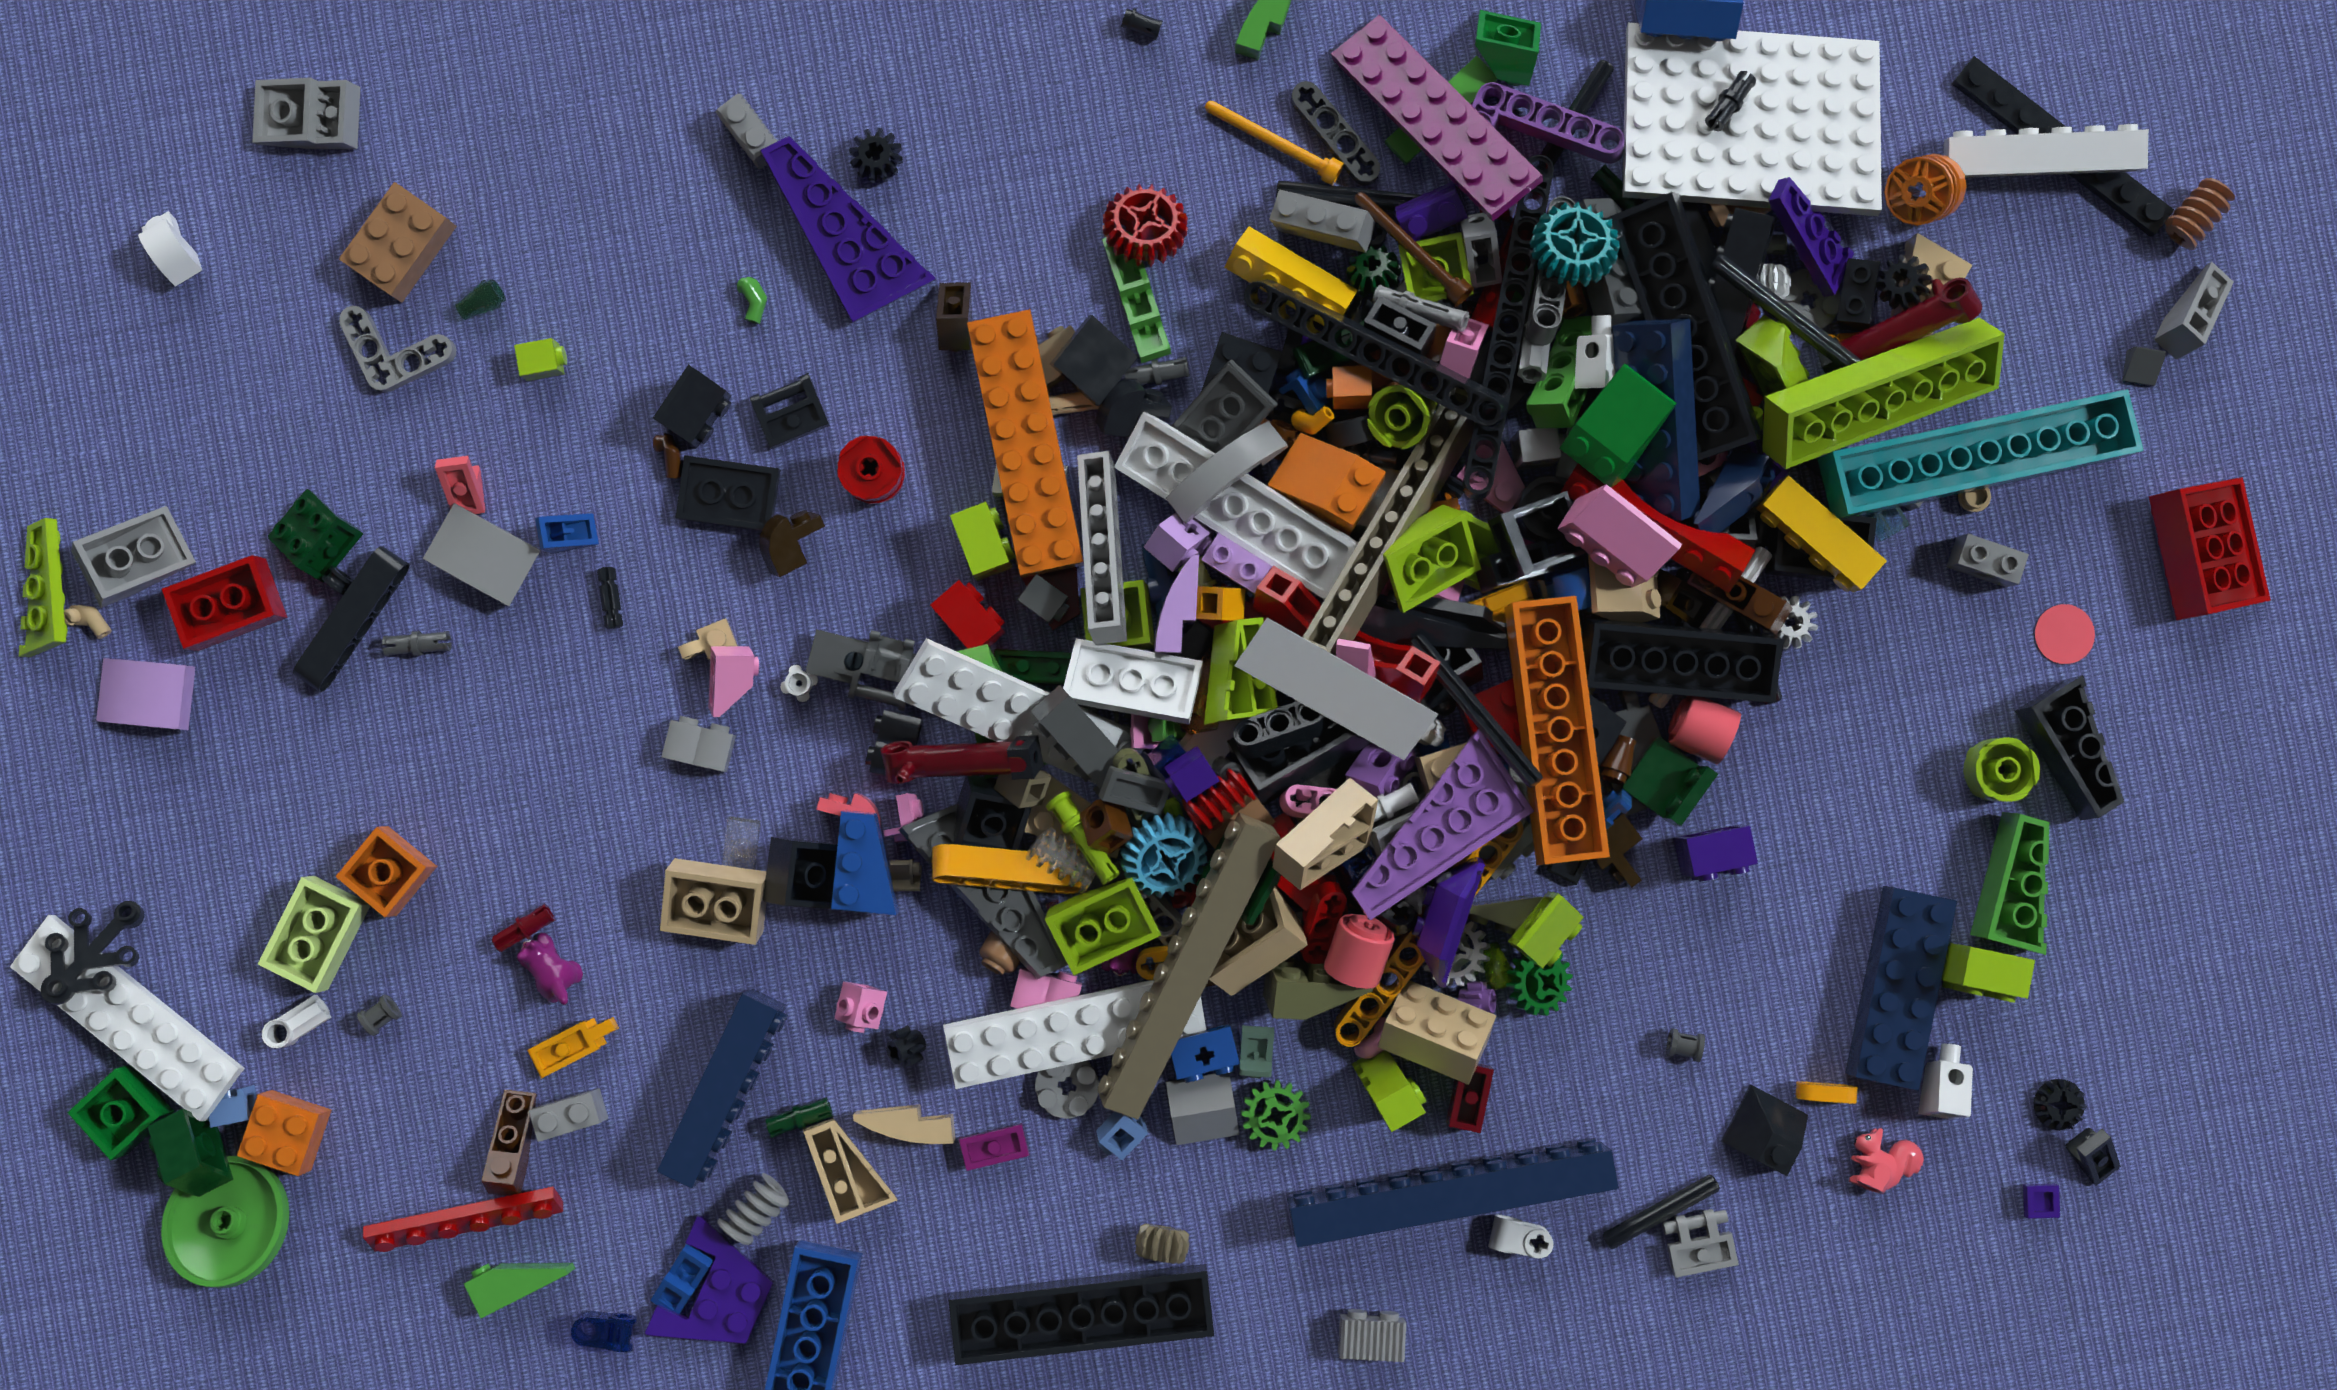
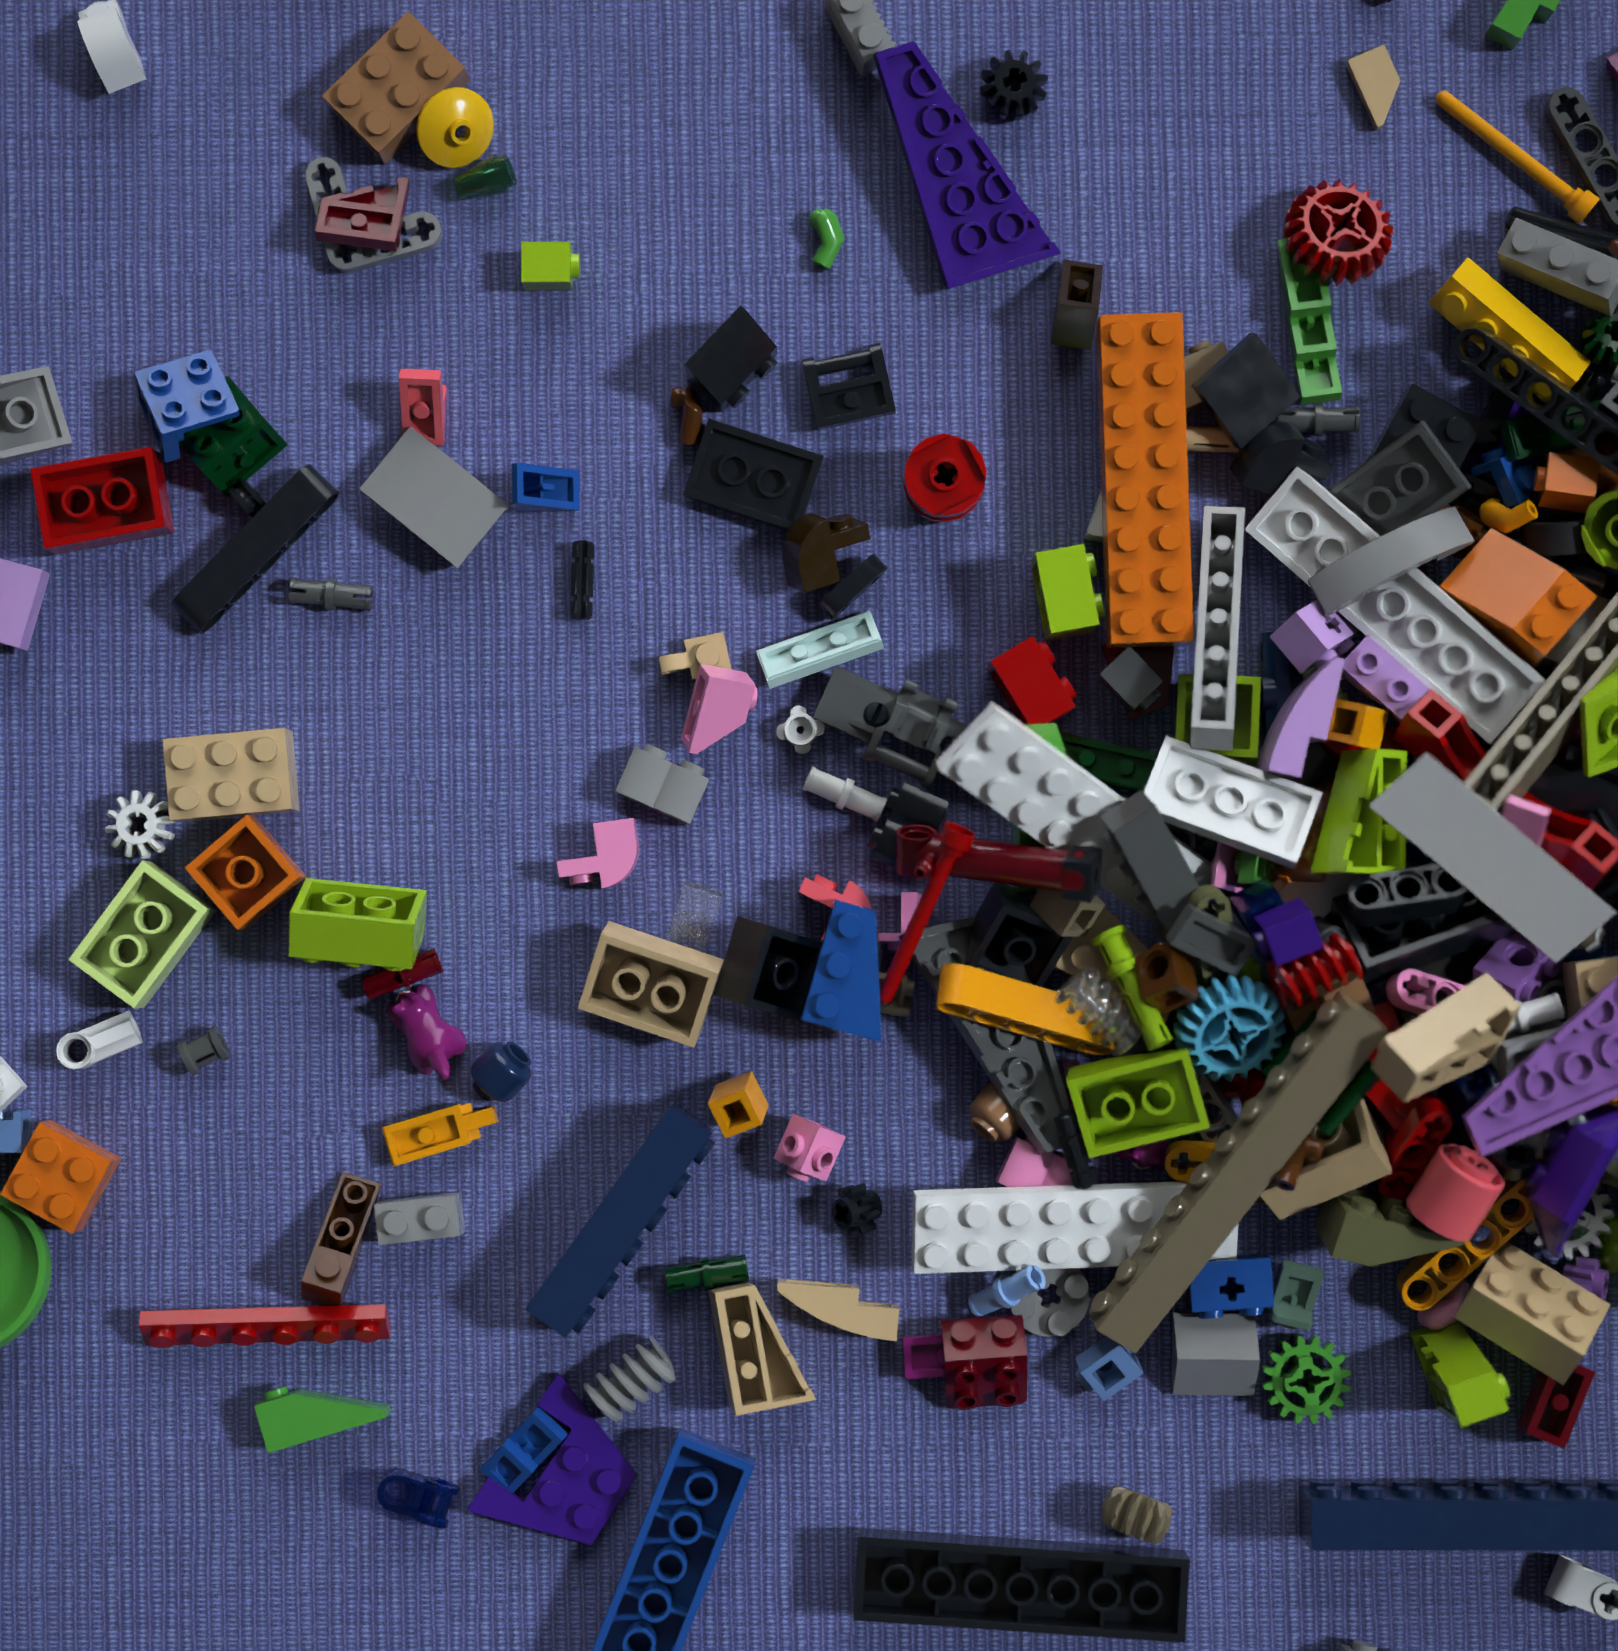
camera: 15 degrees right, 0 degrees up
(273, 512) = (183, 398): none -> bracket
(288, 850) = (126, 824): none -> white gear
(362, 797) = (231, 775): none -> tan brick
(389, 346) = (364, 216): none -> wing
(438, 254) = (442, 117): none -> yellow dish
(478, 896) = (357, 924): none -> lime brick
(612, 989) = (501, 1071): none -> dark blue head
(672, 807) = (615, 859): none -> bright pink brick
(799, 982) = (738, 1104): none -> light orange brick
(802, 618) = (819, 649): none -> light aqua tile
(819, 565) = (852, 586): none -> black beam
(841, 726) = (844, 794): none -> white pin
(922, 750) = (954, 842): none -> red piece
(1024, 1147) = (985, 1362): none -> dark red bracket
(1031, 1089) = (1006, 1291): none -> light blue pin
(1062, 972) = (1074, 1149): none -> black axle
(1156, 103) = (1375, 82): none -> tan tile
(1227, 959) = (1289, 1173): none -> reddish brown arm

